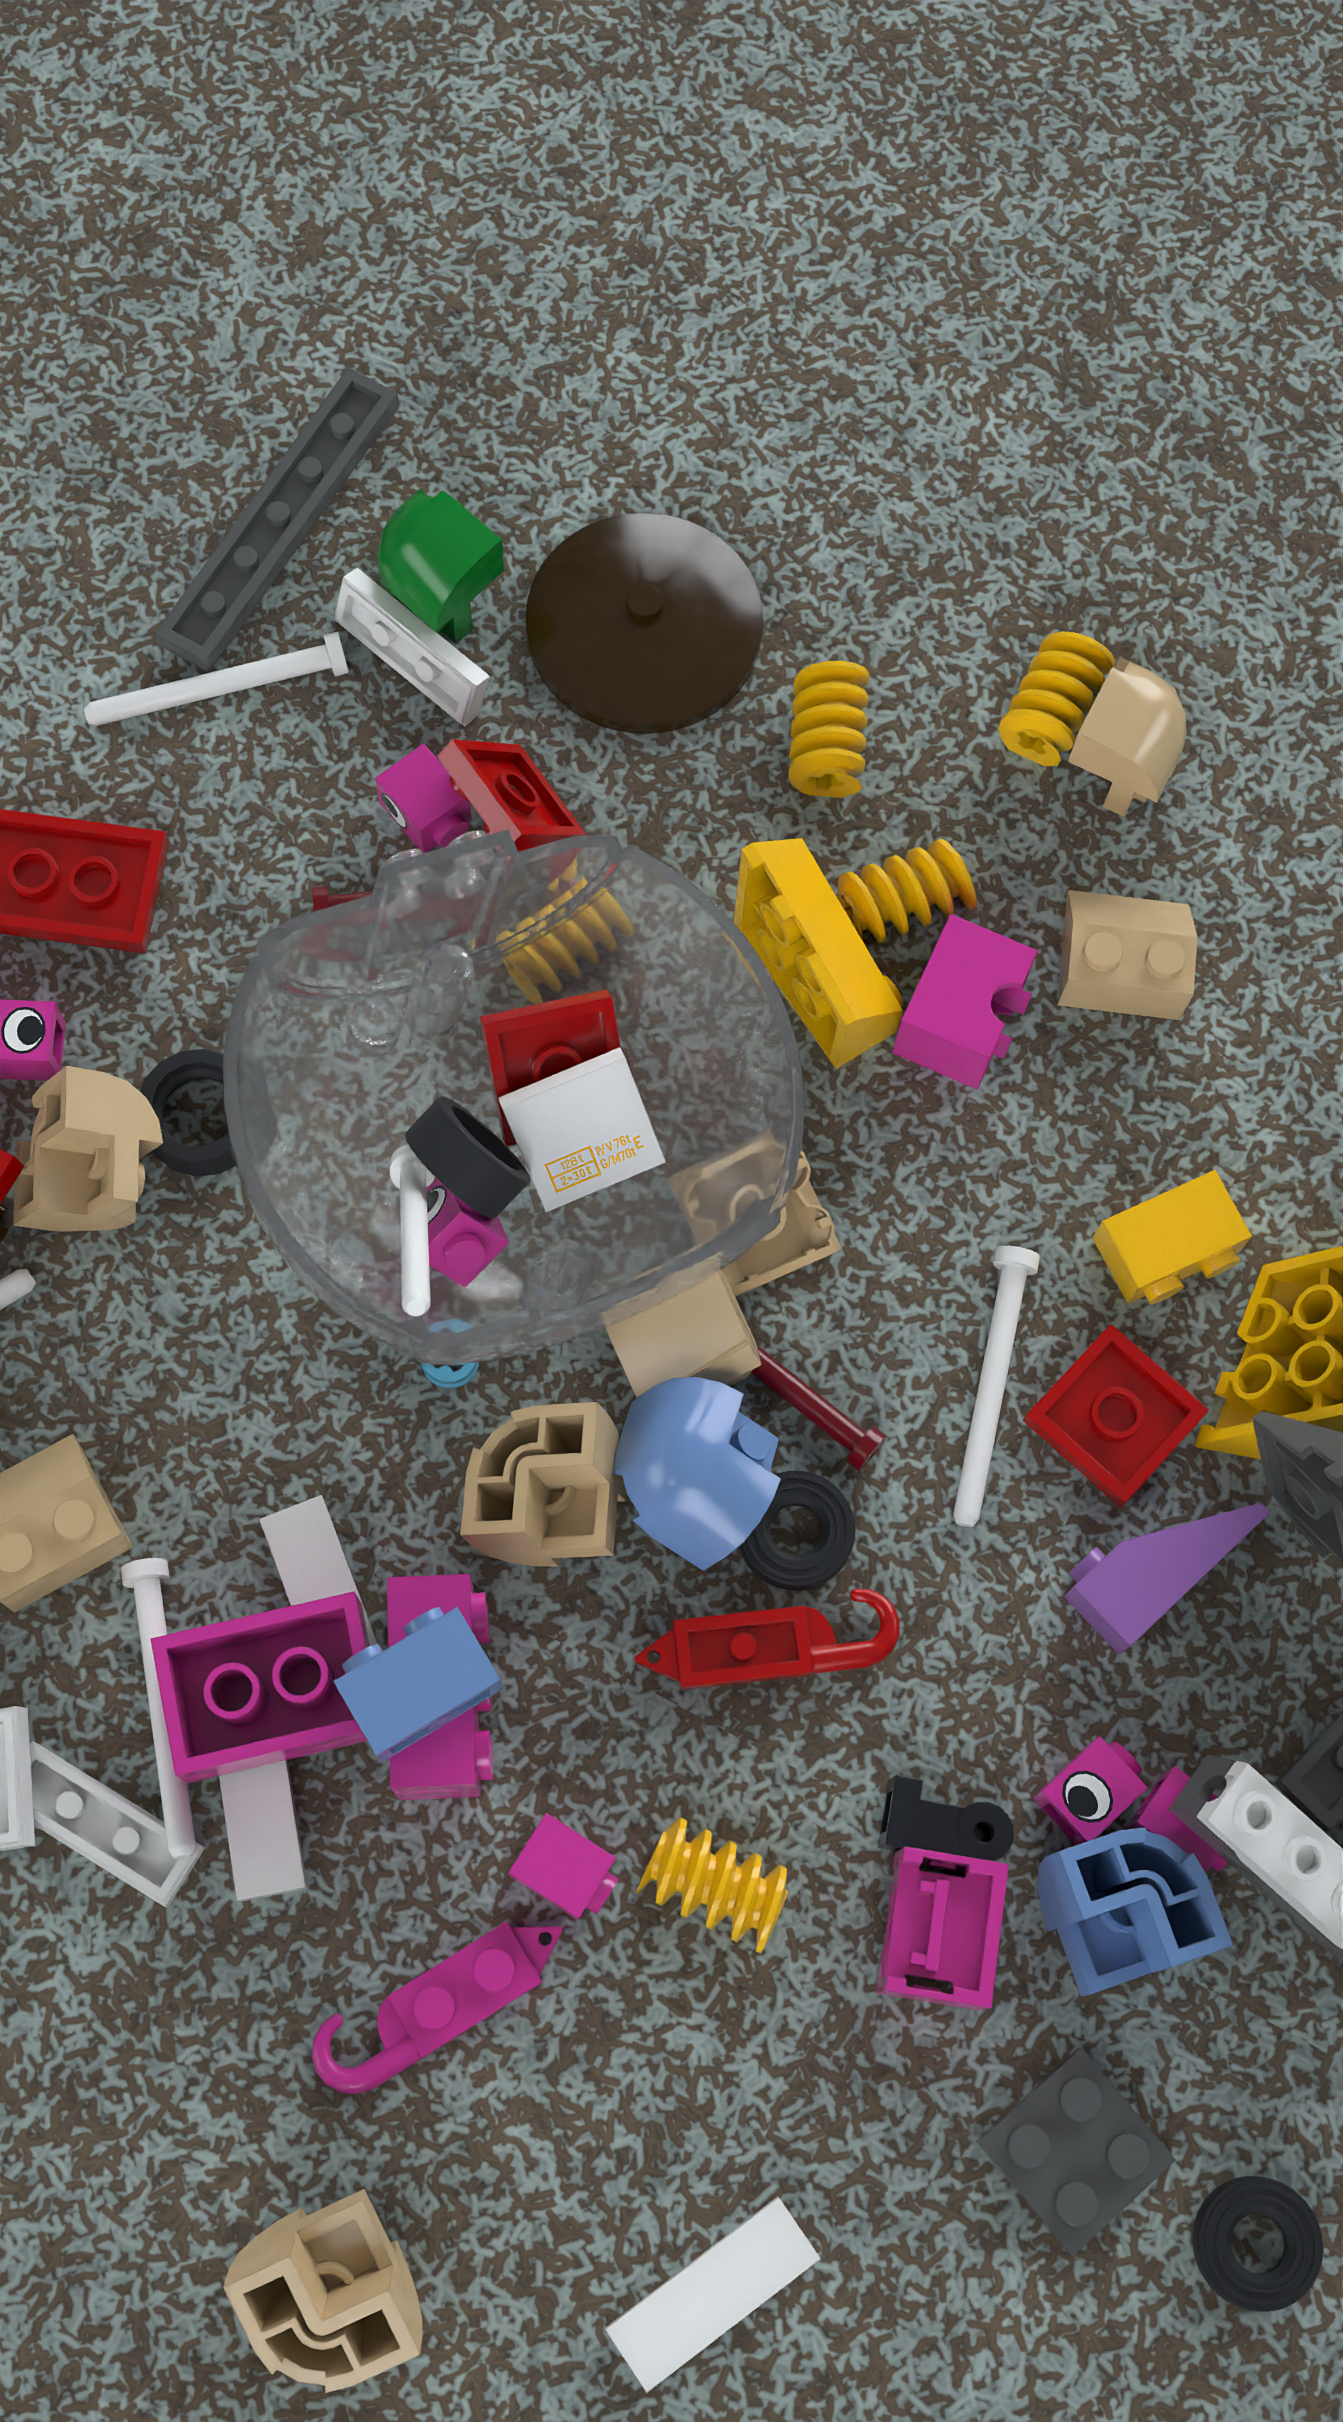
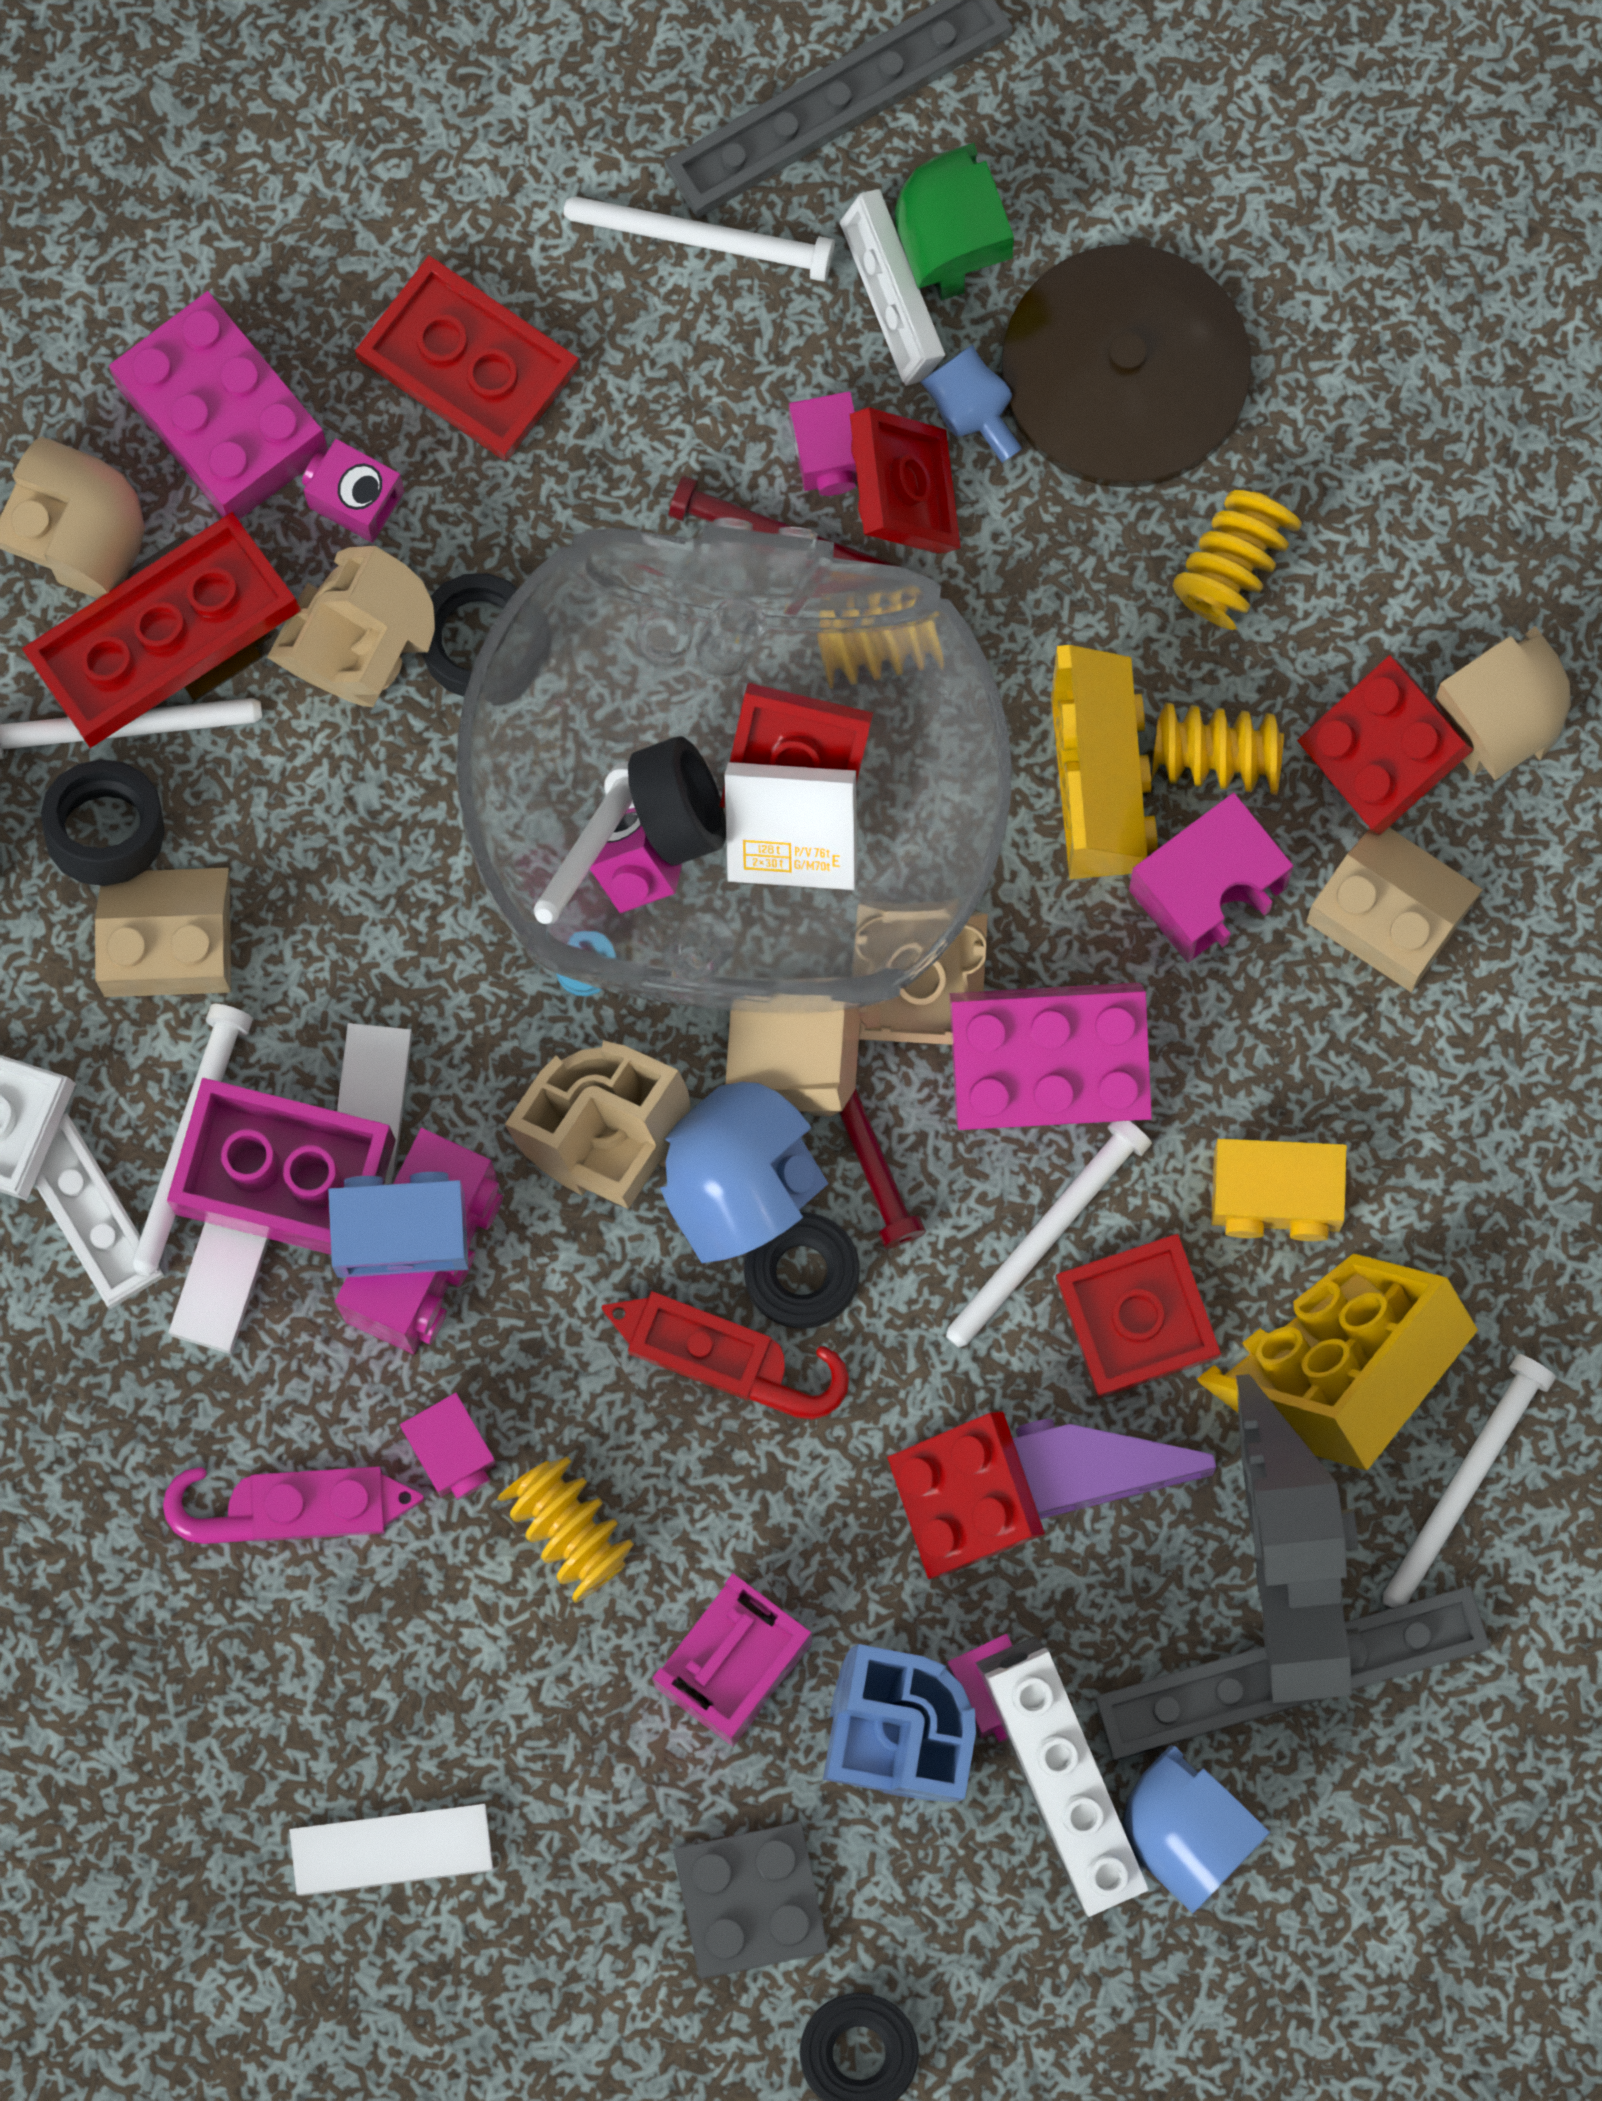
camera: 35 degrees right, 5 degrees up
(327, 2296) = (82, 1679): tan brick -> none
(530, 708) = (972, 401): none -> medium blue piece
(915, 1223) = (1050, 1056): none -> dark pink brick
(972, 1831) = (805, 1597): black leg -> none
(1045, 820) = (1385, 745): none -> red plate
(1055, 697) = (1465, 626): yellow piece -> none
(1062, 1657) = (965, 1495): none -> red plate
(1092, 1790) = (930, 1617): dark pink brick -> none

